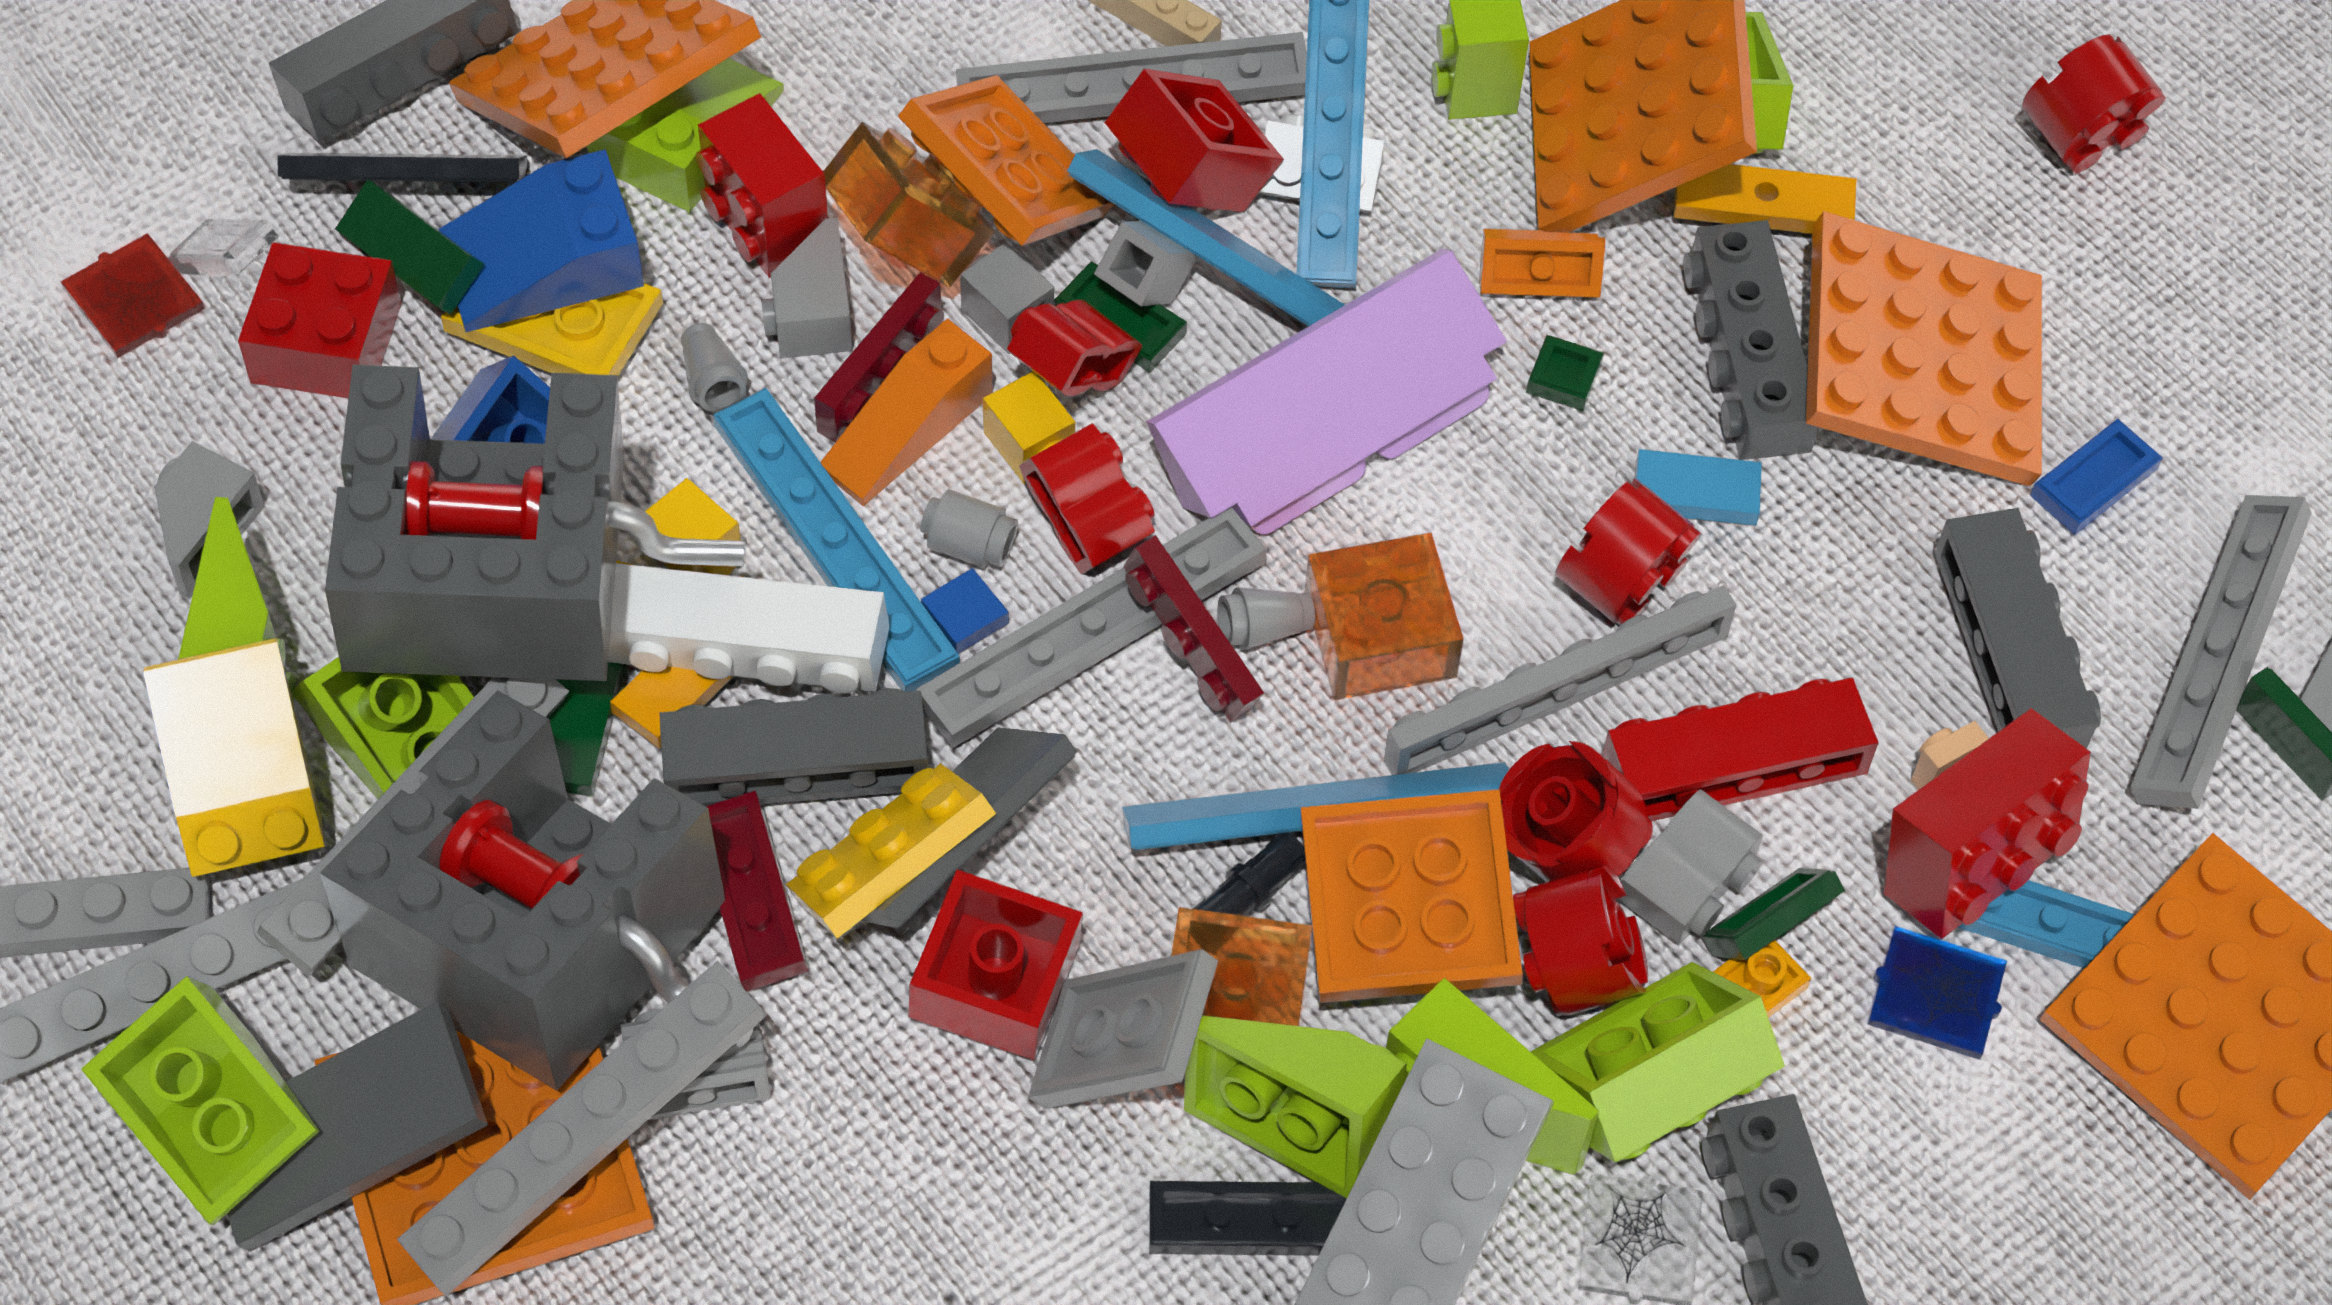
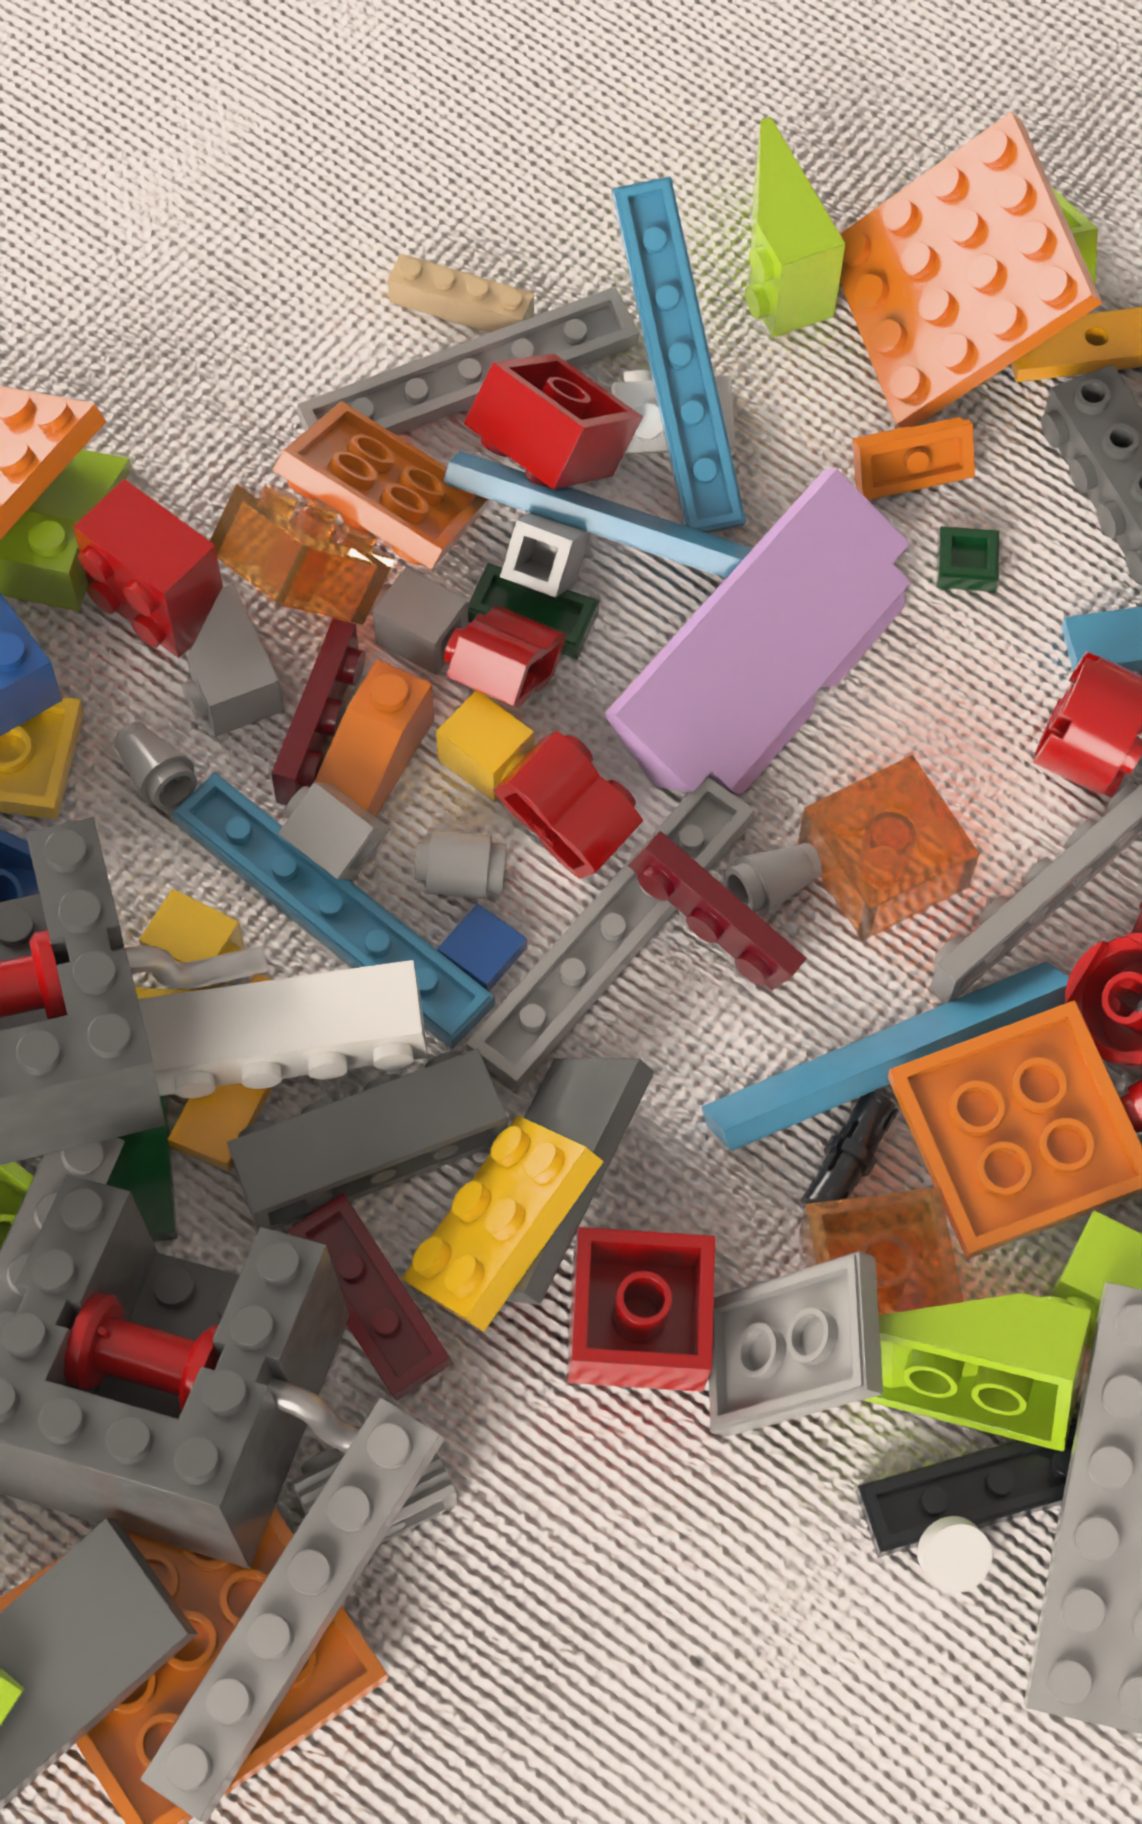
camera: 15 degrees left, 5 degrees up
(855, 464) = (332, 830): none -> light grey brick
(1219, 1264) = (954, 1554): none -> white tile

